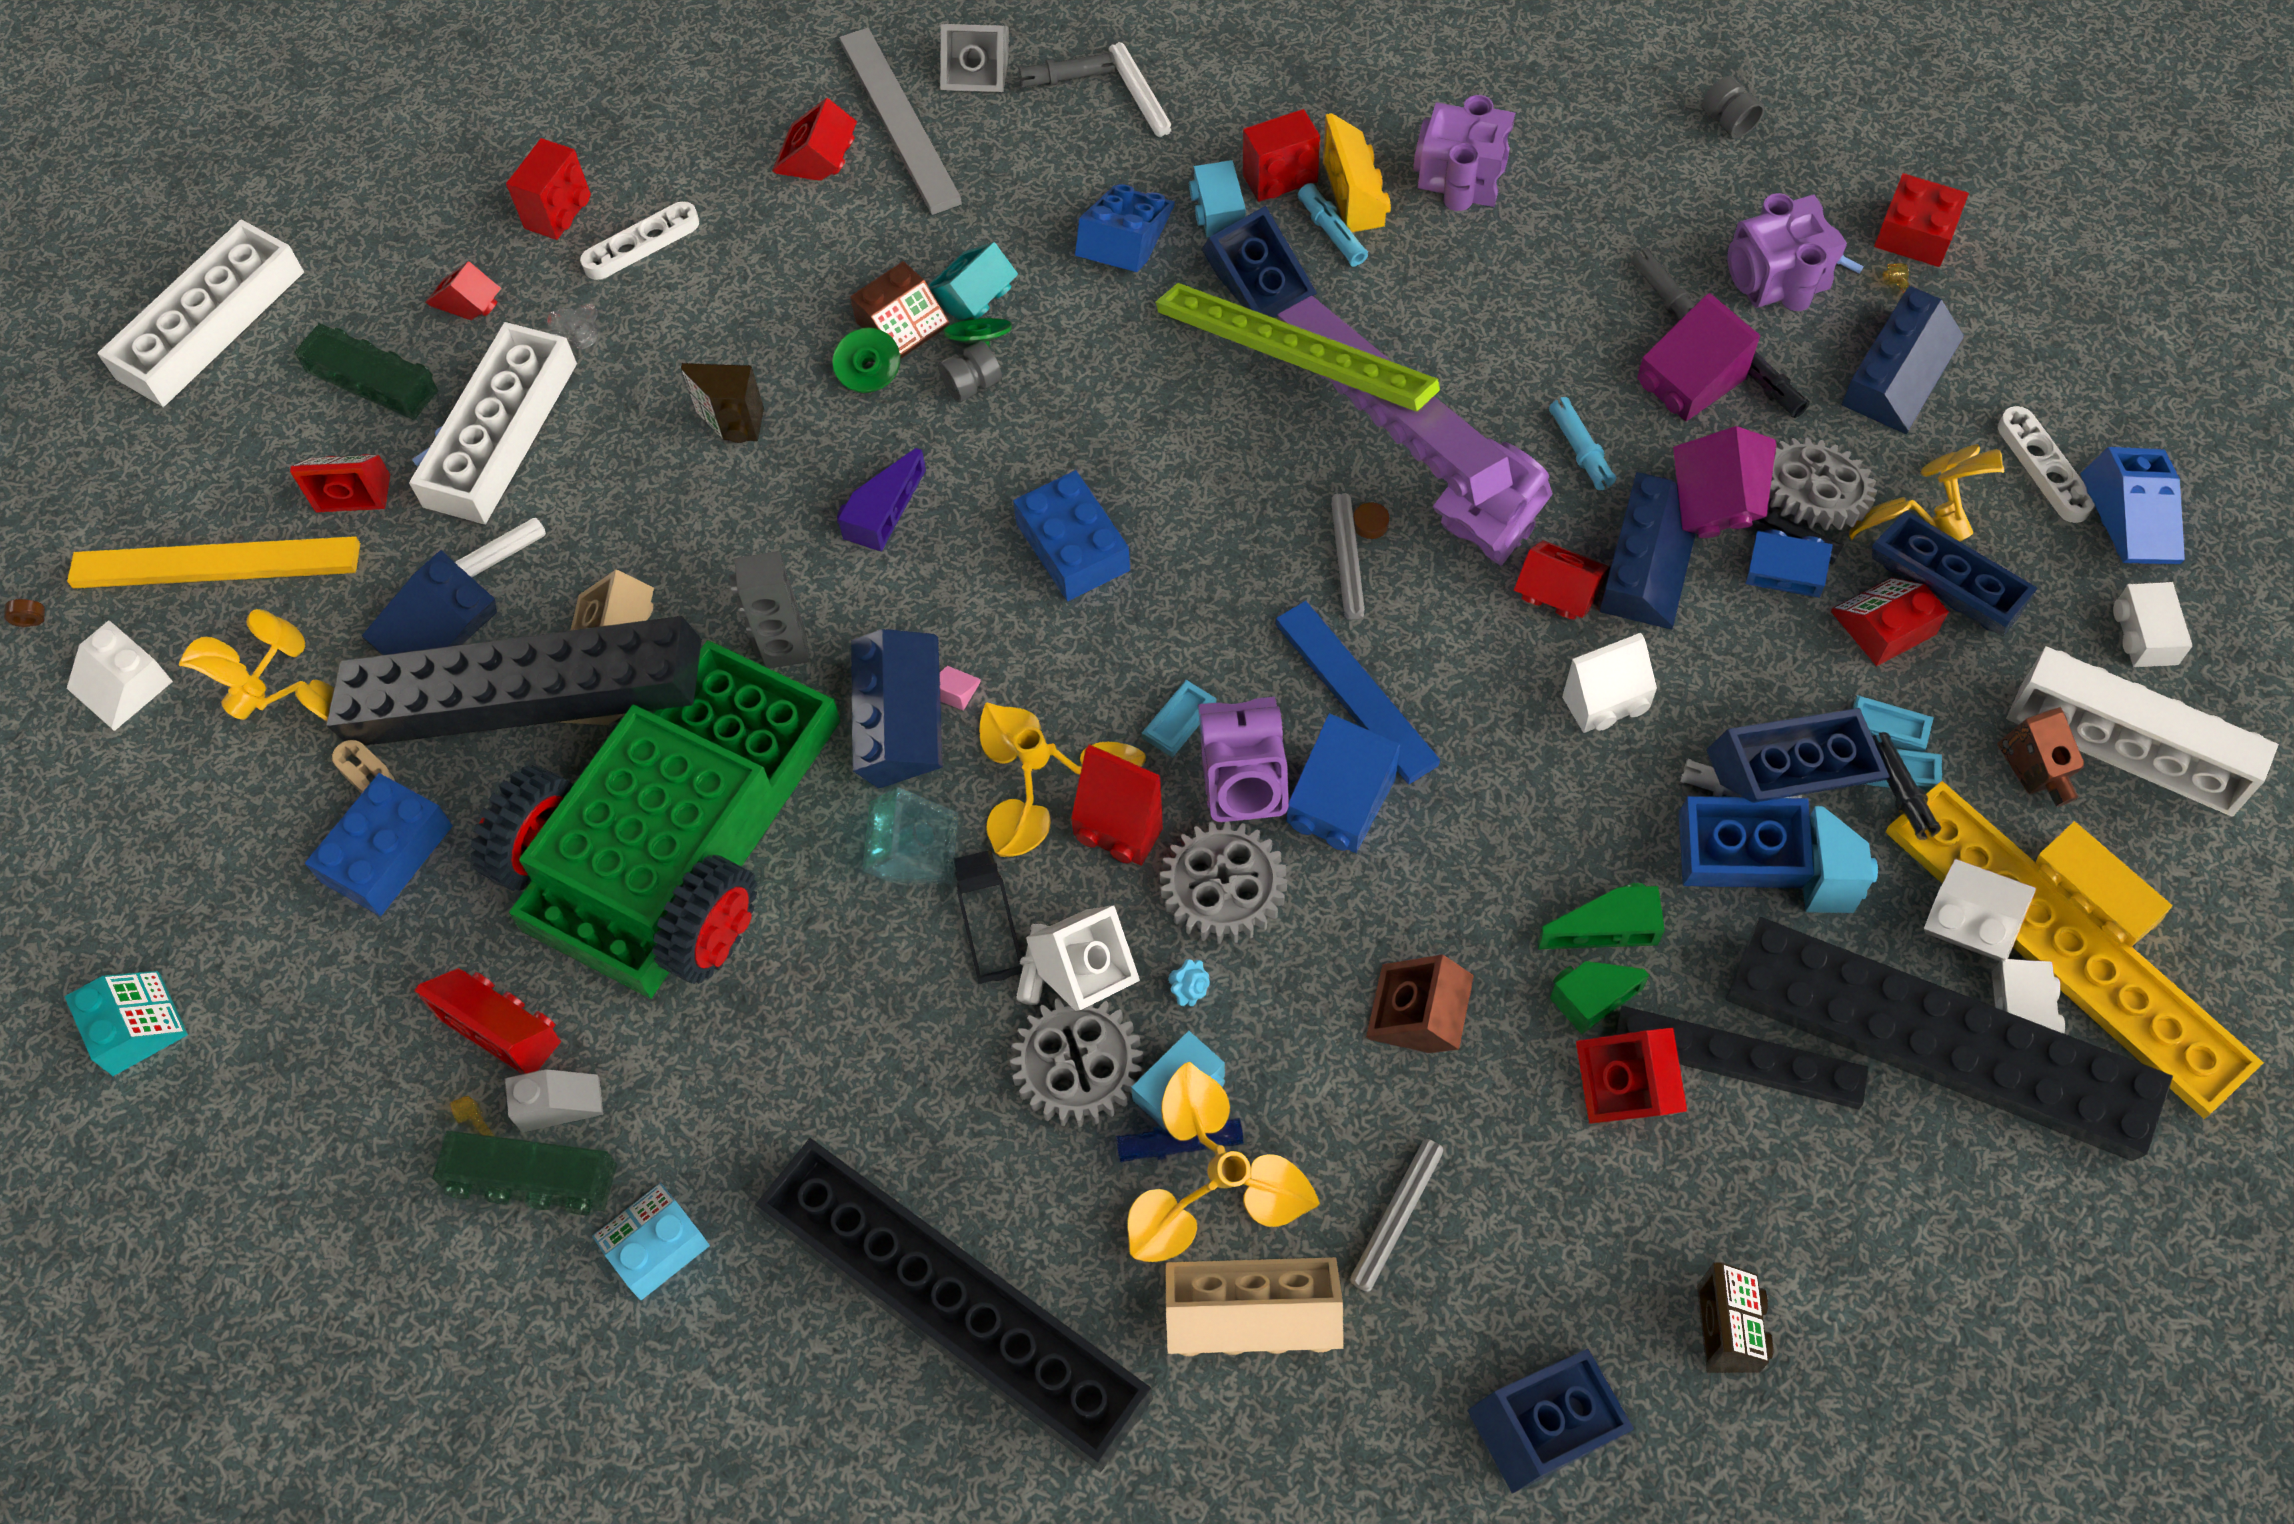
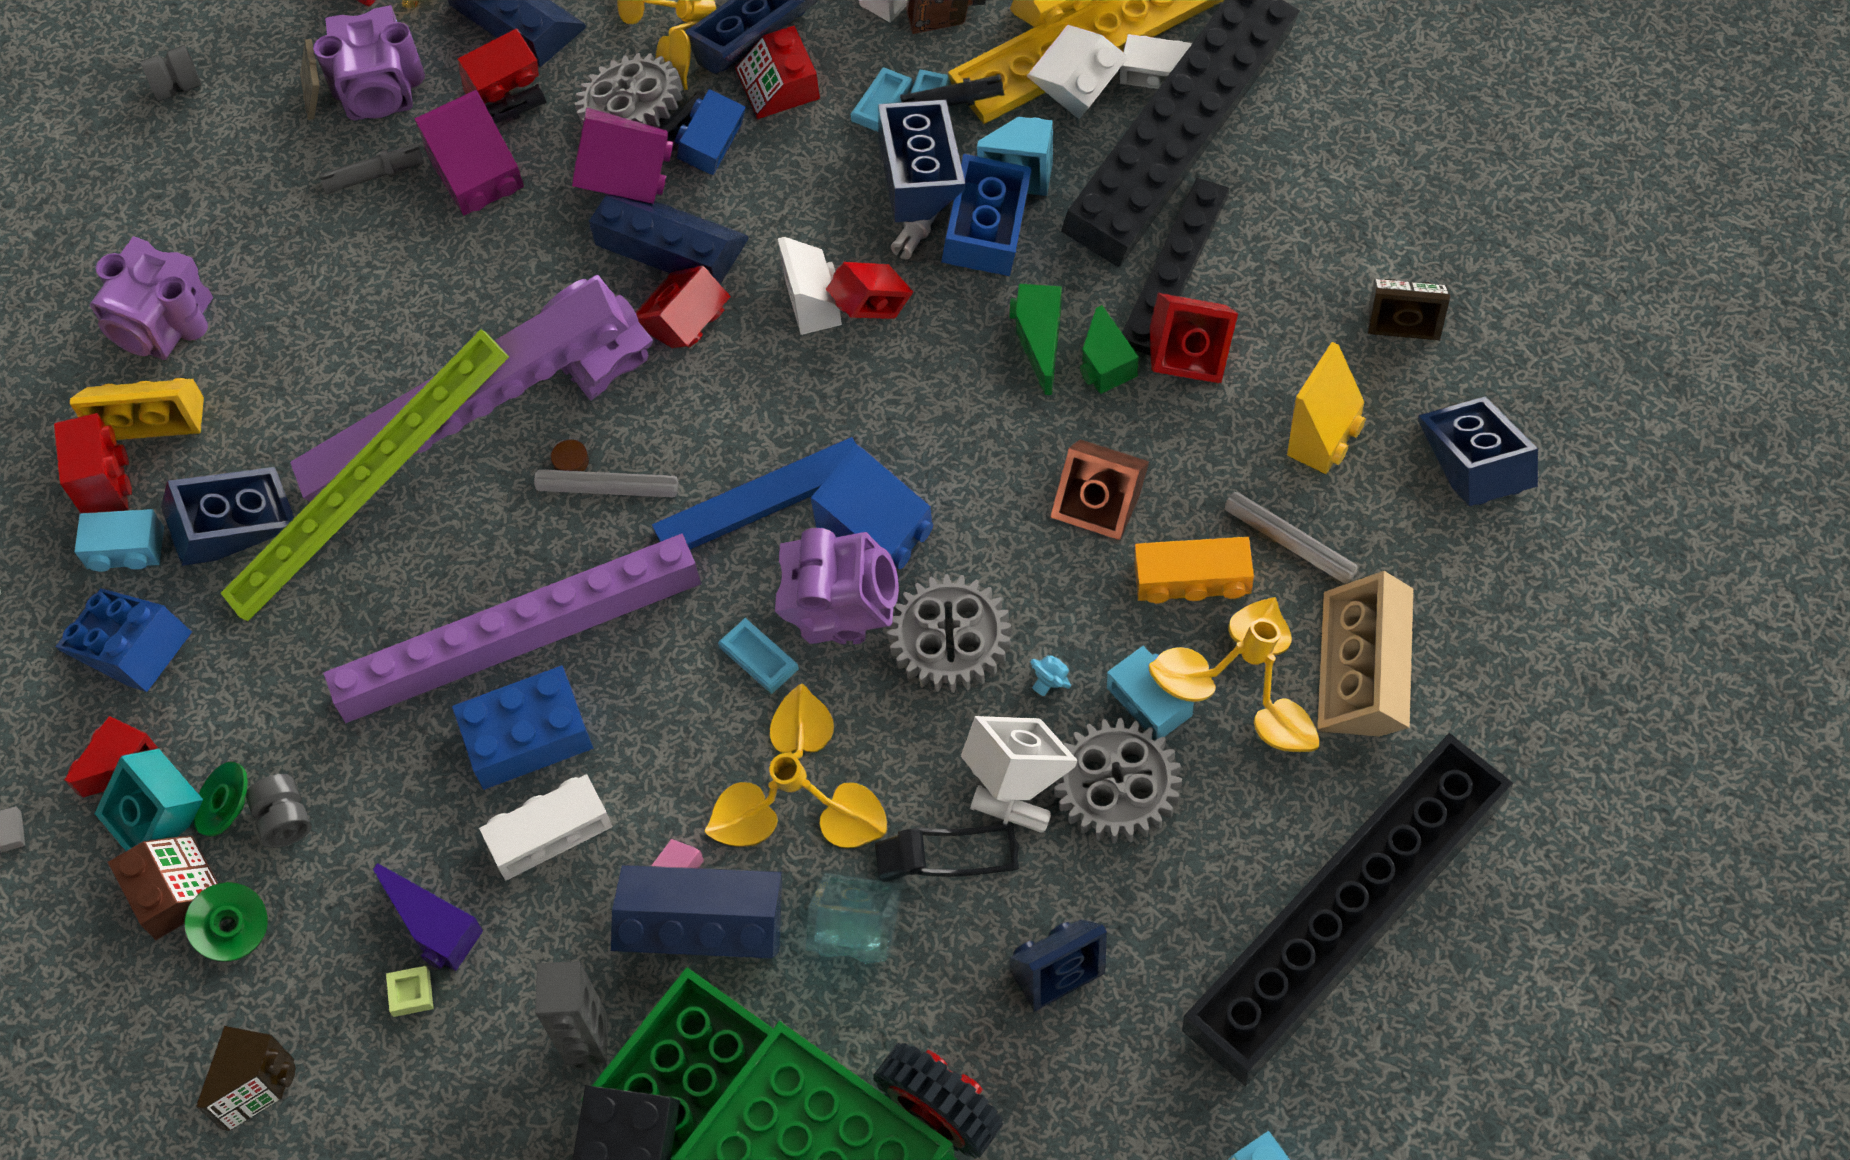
camera: 80 degrees left, 0 degrees up
(816, 505) = (409, 991): none -> yellowish green plate
(867, 1017) = (1060, 962): none -> dark blue slope
(977, 573) = (545, 826): none -> white brick
(1018, 243) = (97, 763): none -> red slope
(1117, 806) = (867, 704): red slope -> none
(1161, 1143) = (1207, 716): clear blue pin -> none
(1177, 513) = (512, 628): none -> medium lavender brick
(1324, 215) = (183, 442): medium azure pin -> none
(1333, 1112) = (1193, 569): none -> light orange brick
(1549, 1227) = (1326, 413): none -> yellow slope
(1588, 453) = (529, 268): medium azure pin -> none
(1613, 740) = (869, 290): none -> red brick
(1745, 211) = (309, 79): none -> dark tan piece
(1808, 357) = (498, 67): none -> red slope

